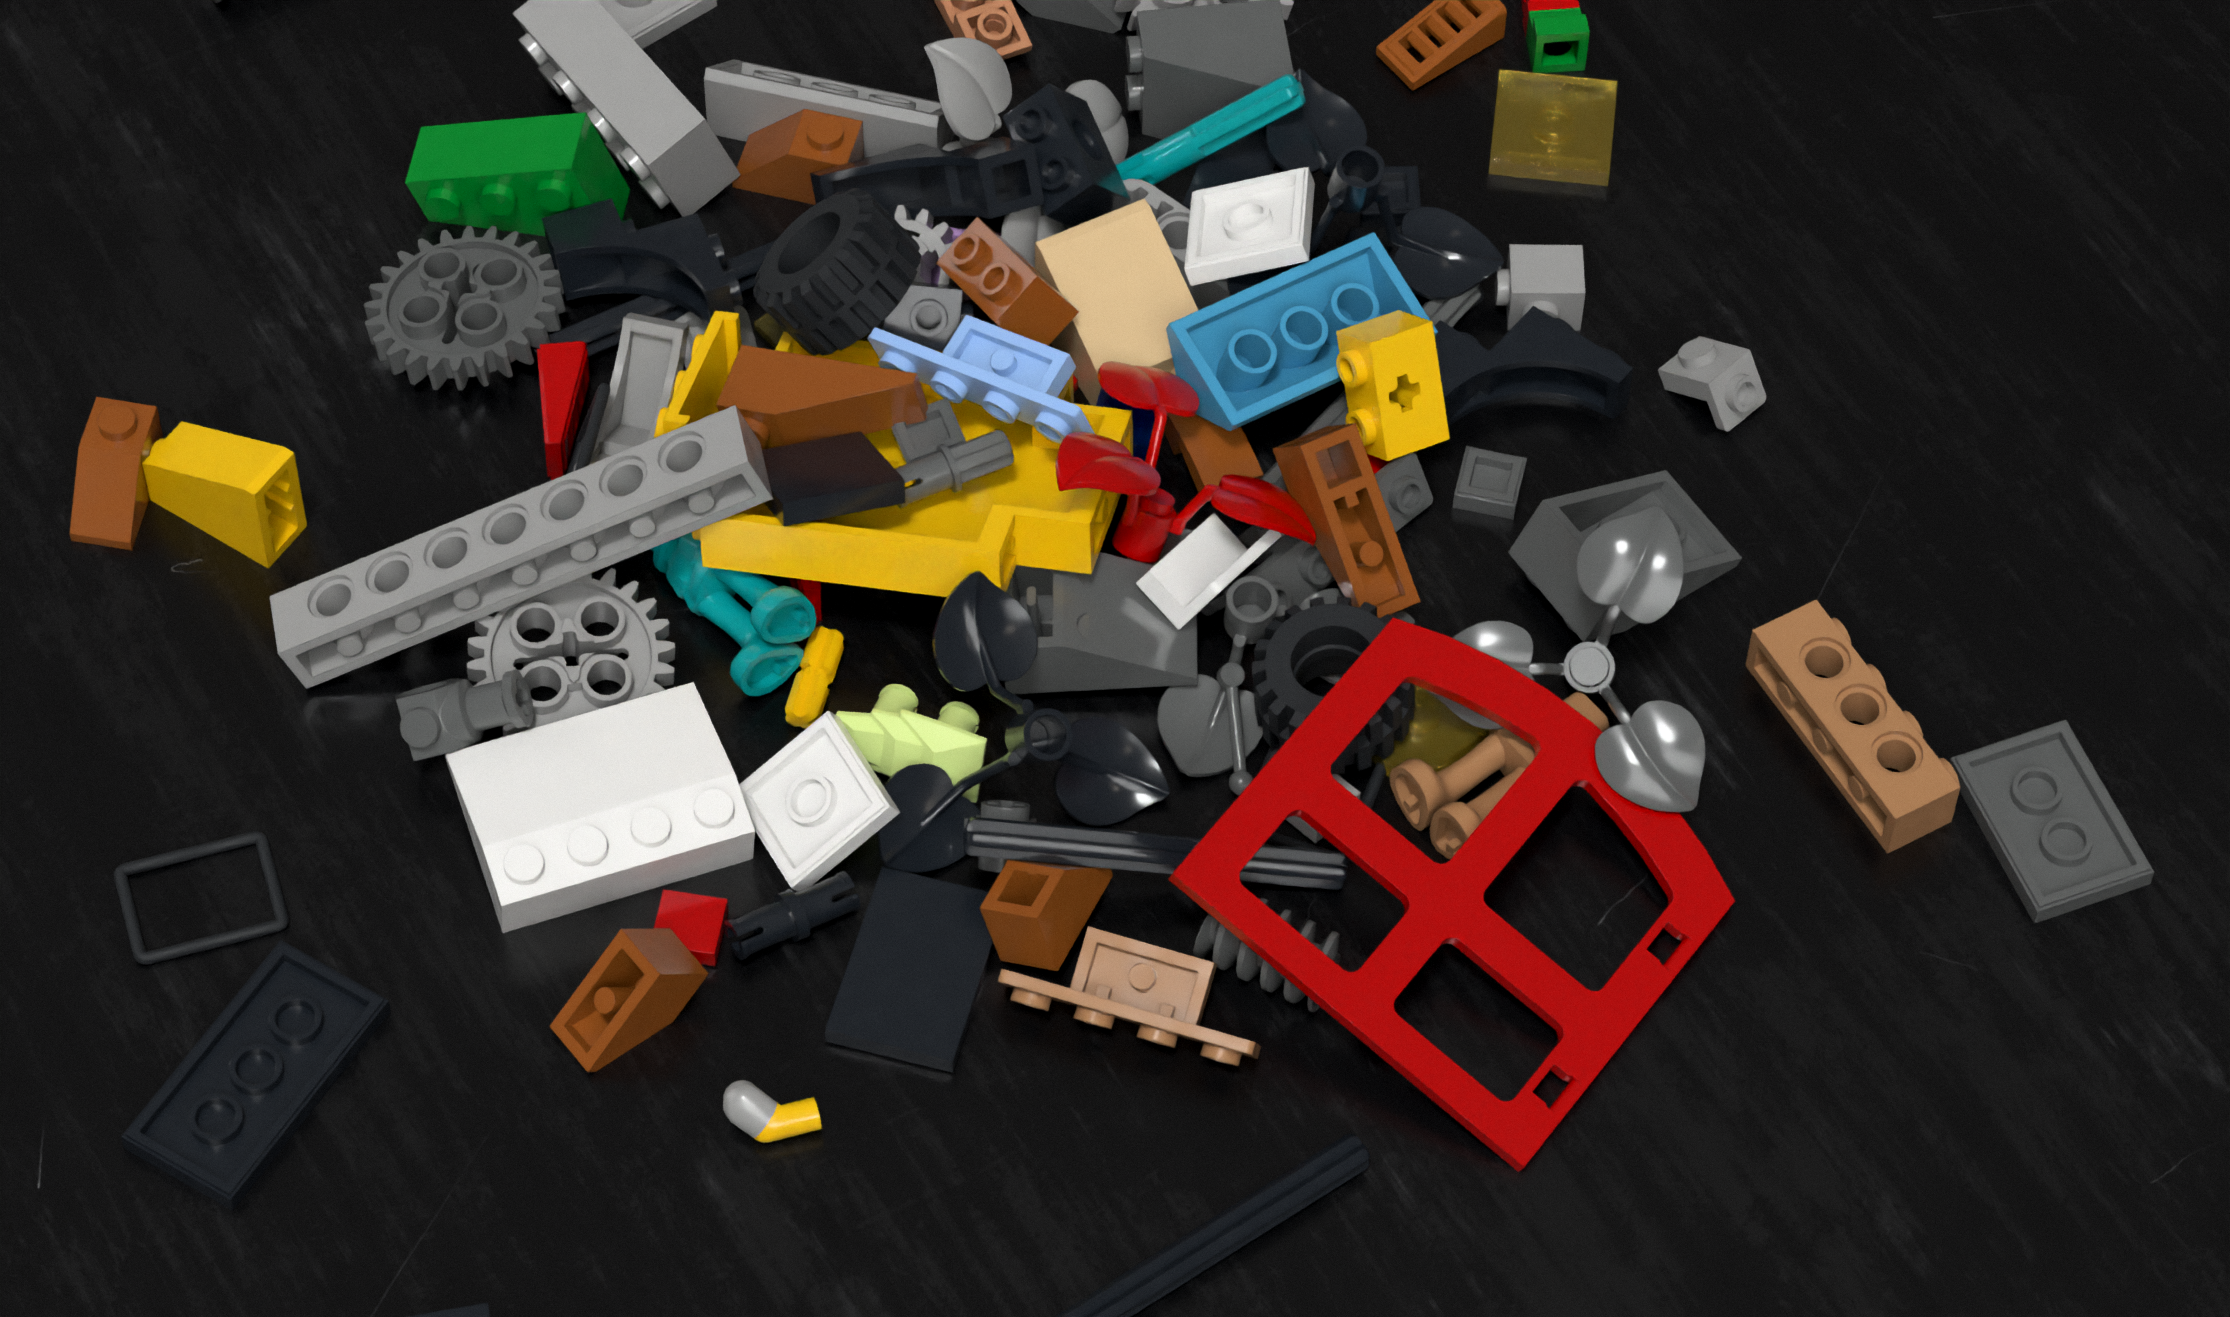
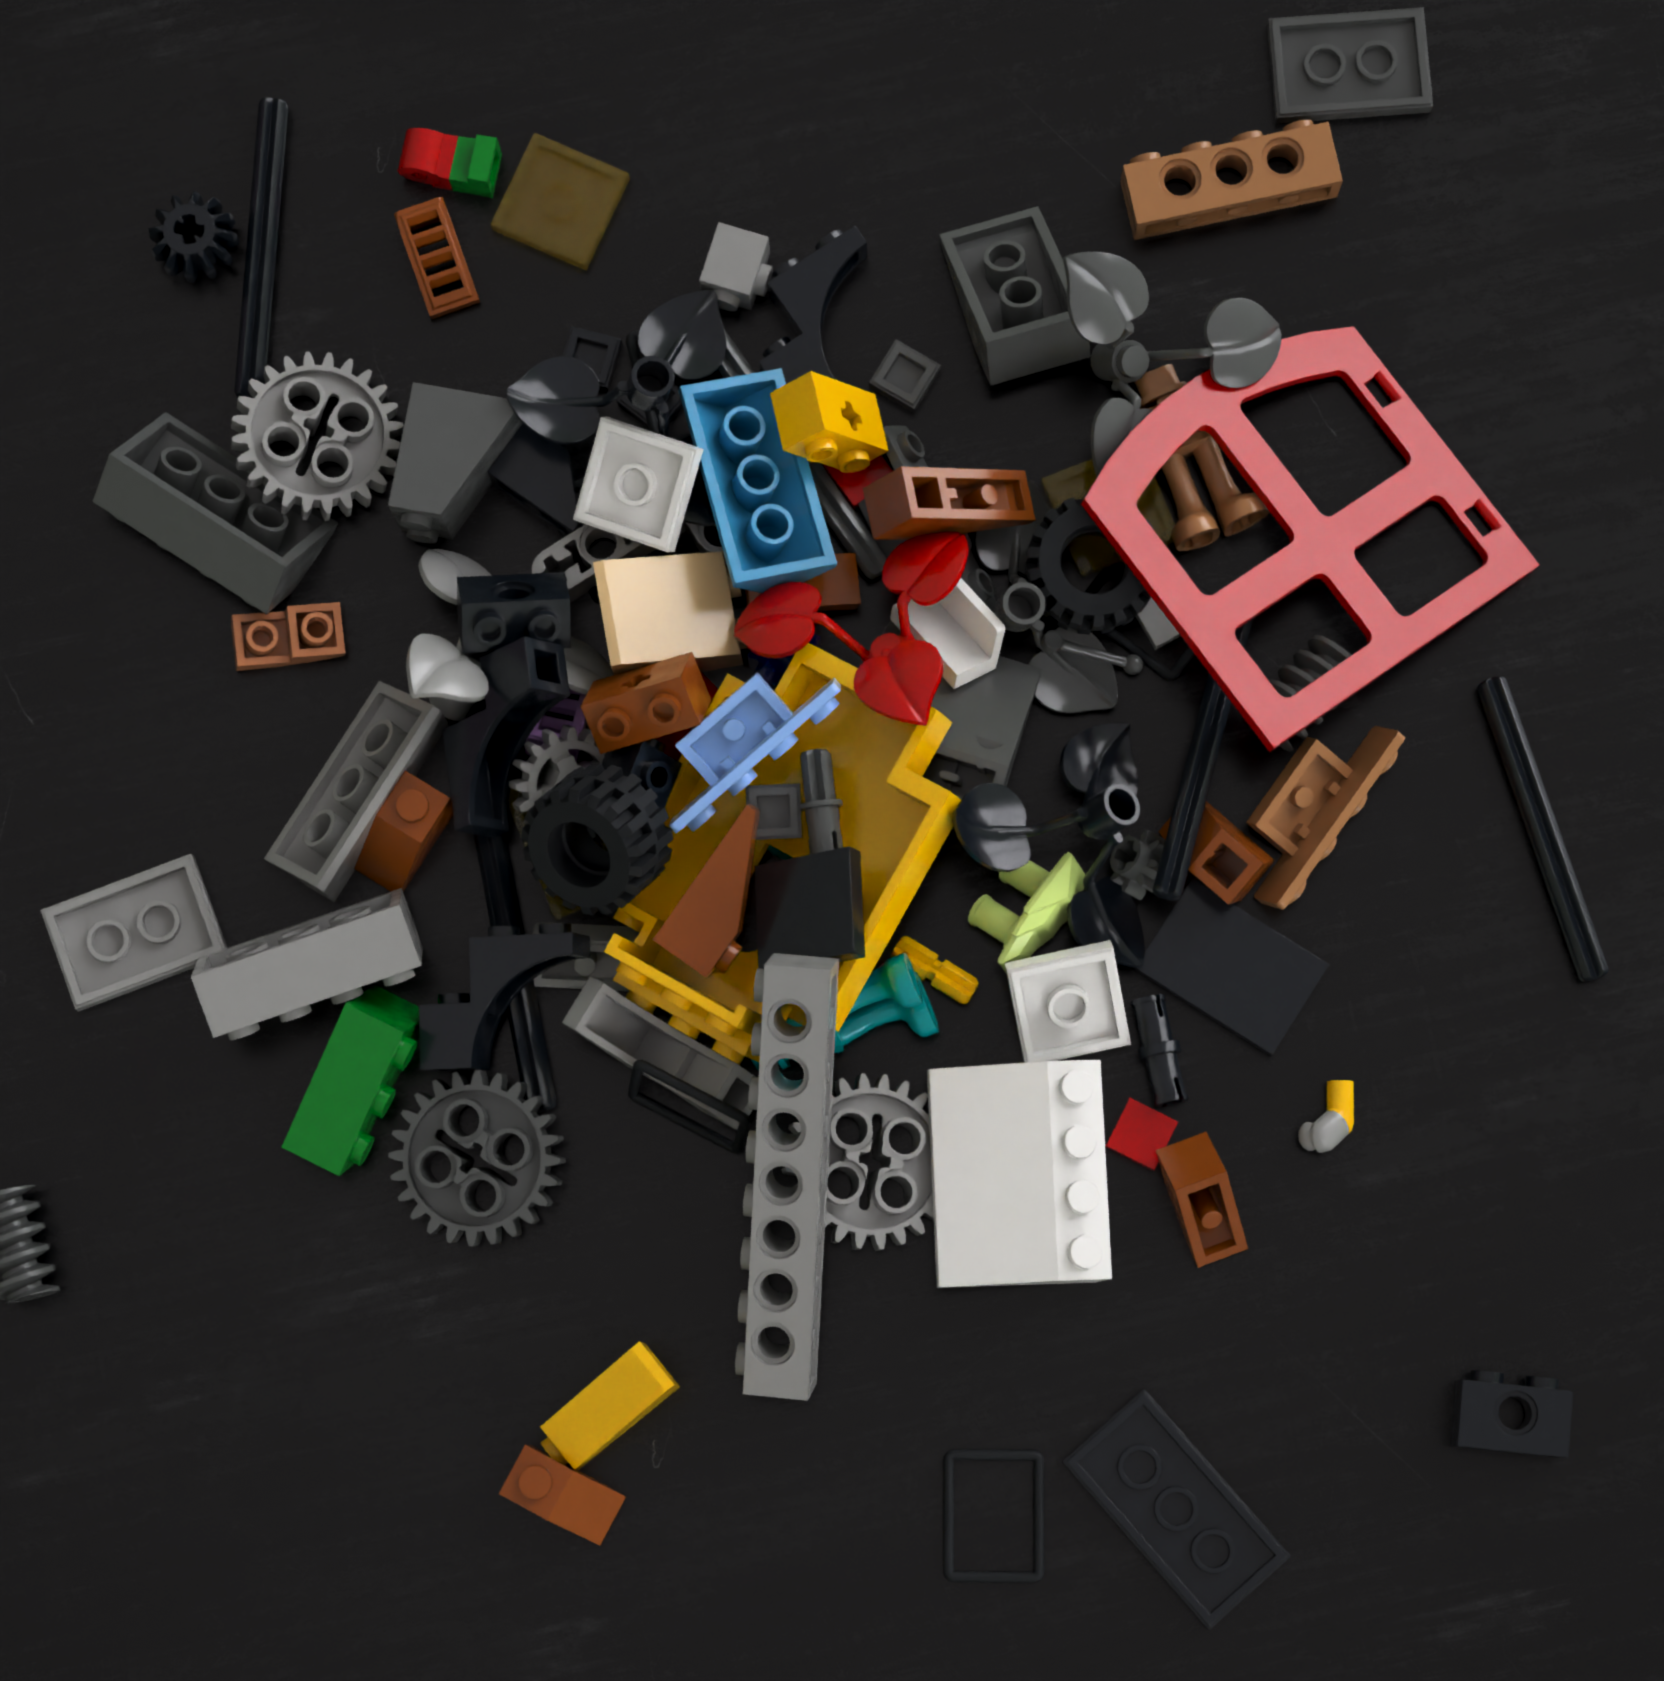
camera: 65 degrees left, 25 degrees up
(455, 714) = (905, 1275): dark grey connector -> none
(563, 390) = (588, 1099): red slope -> none
(1215, 131) = (523, 485): teal axle -> none
(1717, 374) = (863, 164): light grey bracket -> none

